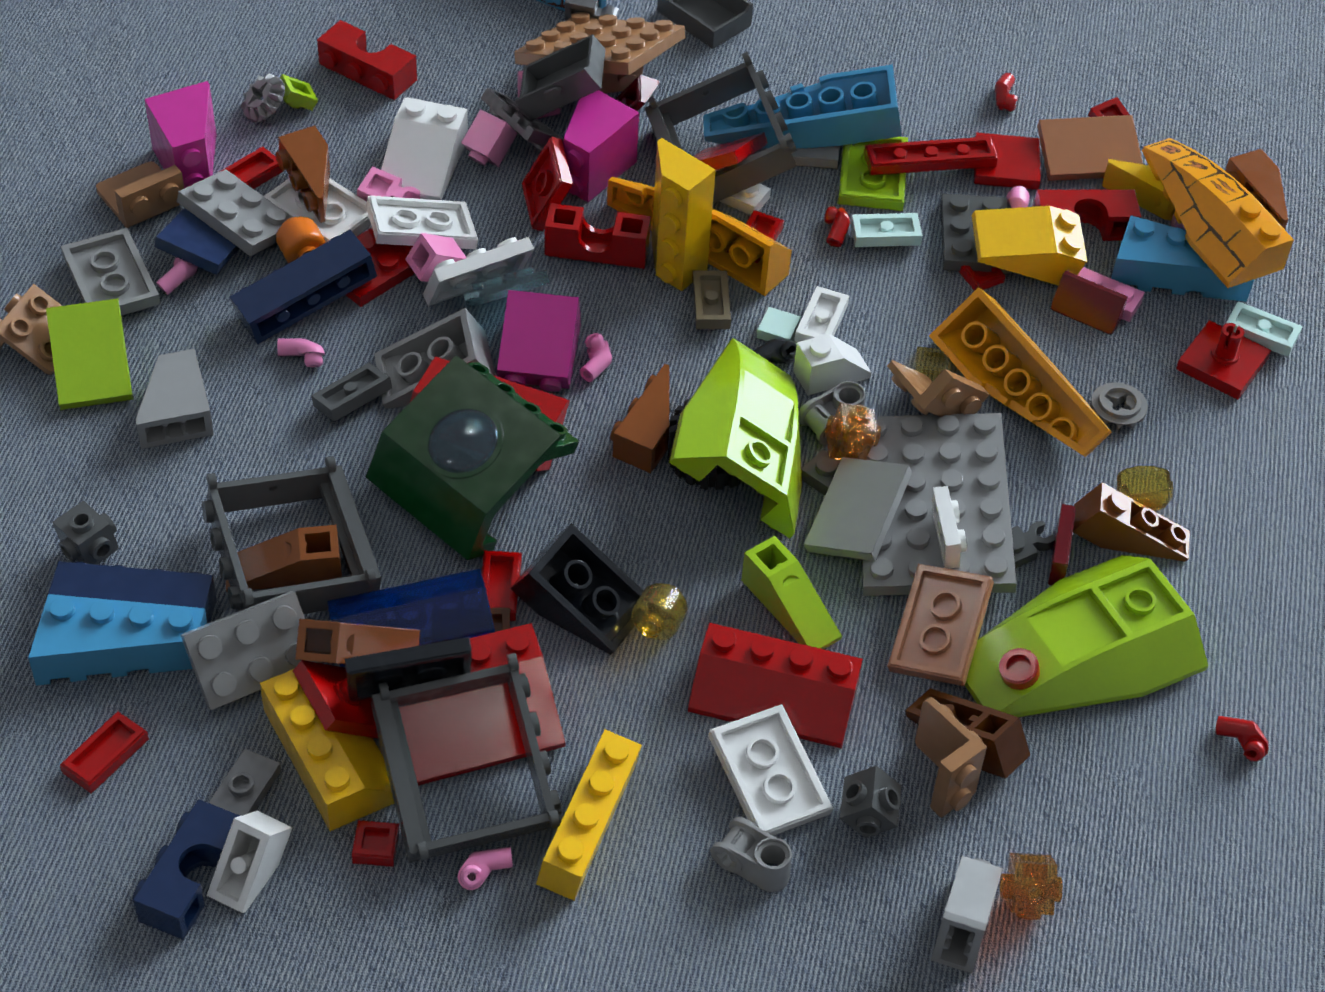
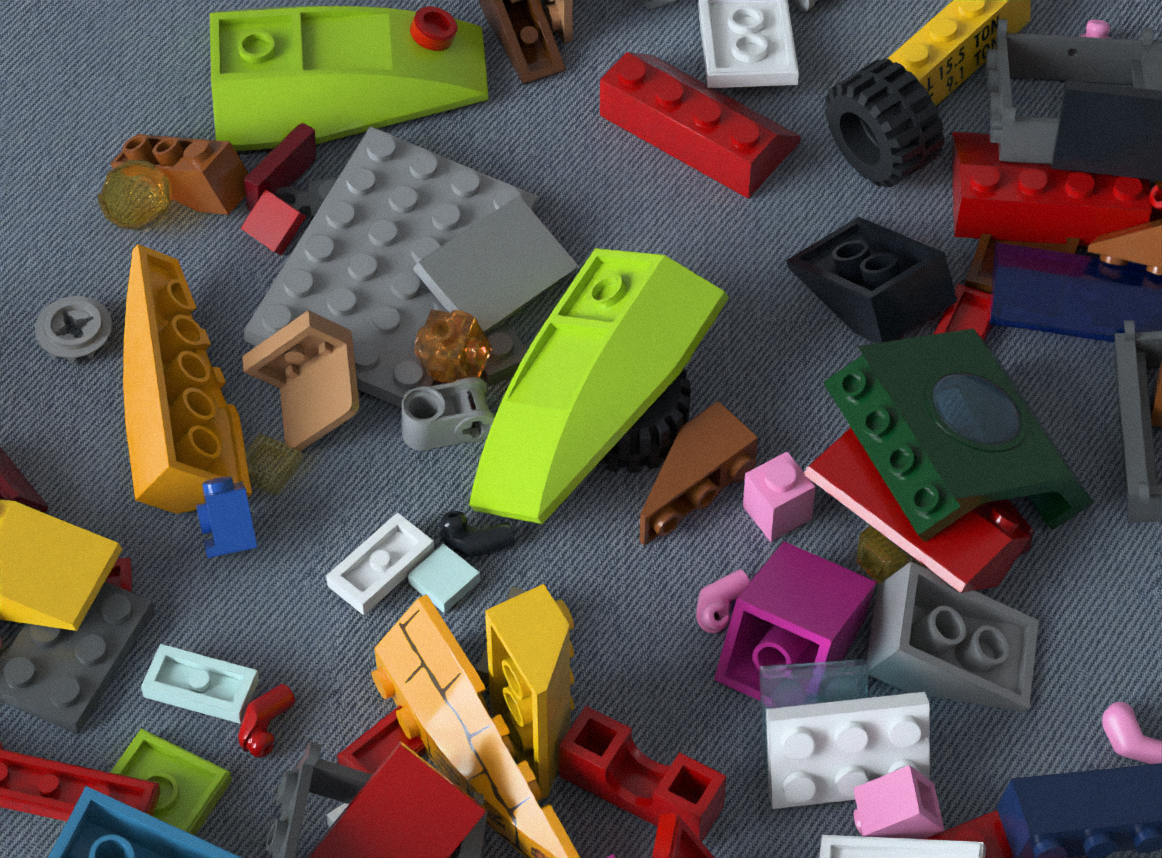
camera: 155 degrees left, 5 degrees up
(351, 391) = (1080, 636): dark grey plate -> none
(587, 415) = (778, 496): none -> bright pink brick
(619, 686) = (884, 122): none -> black tyre
(659, 609) = (792, 224): clear yellow head -> none
(788, 594) = (636, 200): lime slope -> none
(826, 362) = (413, 481): white slope -> none
(937, 301) = (226, 517): none -> blue brick
(941, 624) = (481, 112): nougat tile -> none
(945, 517) = (422, 169): white plate -> none
(1039, 510) = (273, 222): none -> tile

